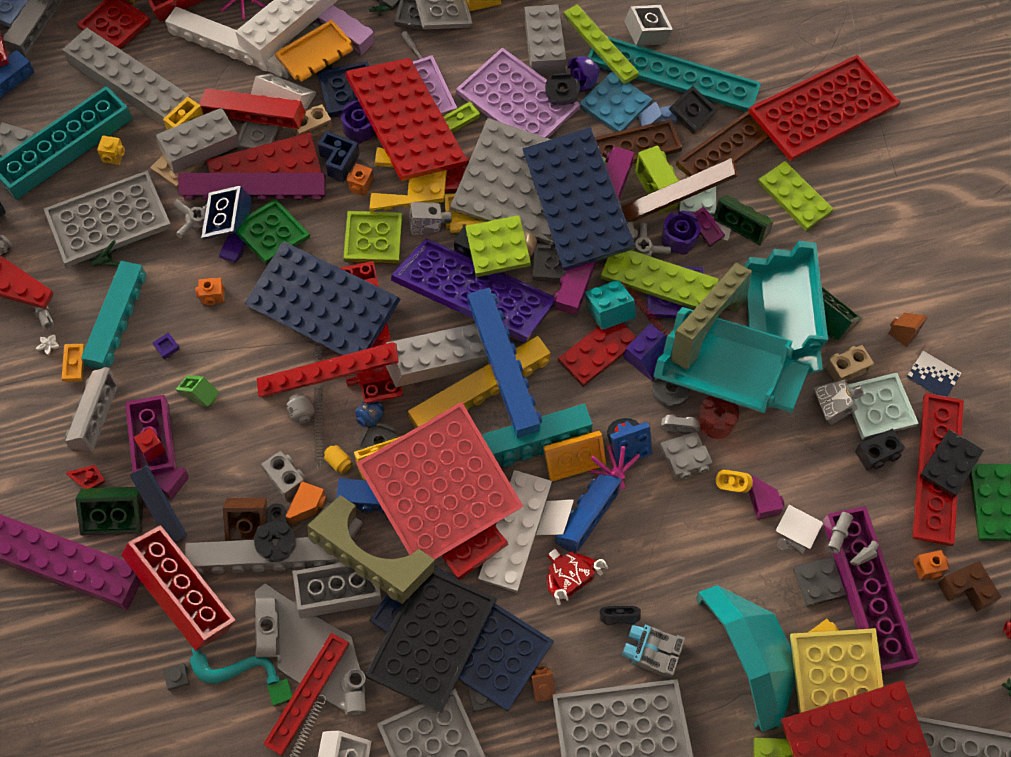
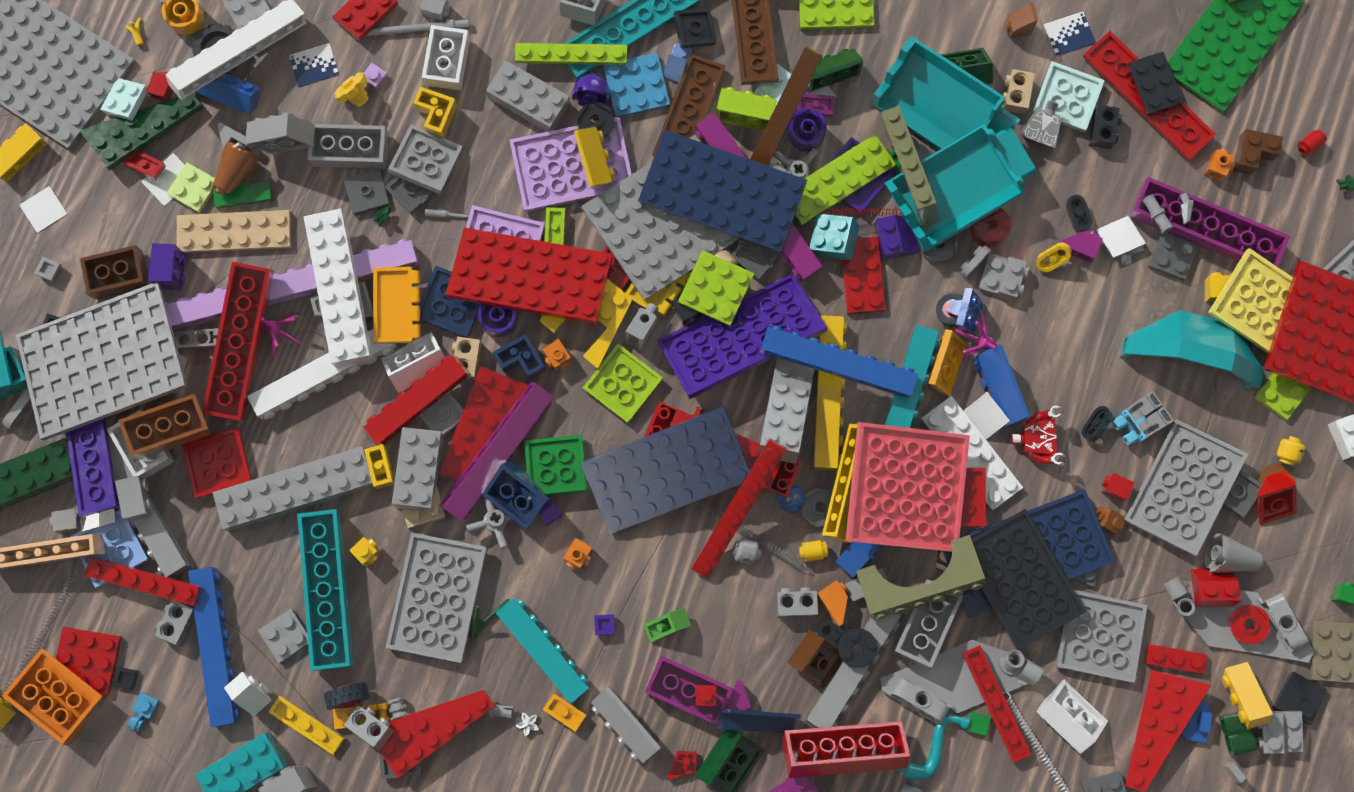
camera: 50 degrees left, 15 degrees up
(529, 98) = (594, 157): none -> yellow slope
(577, 669) = (1117, 486): none -> red brick
(788, 480) = (1079, 214): none -> black plate

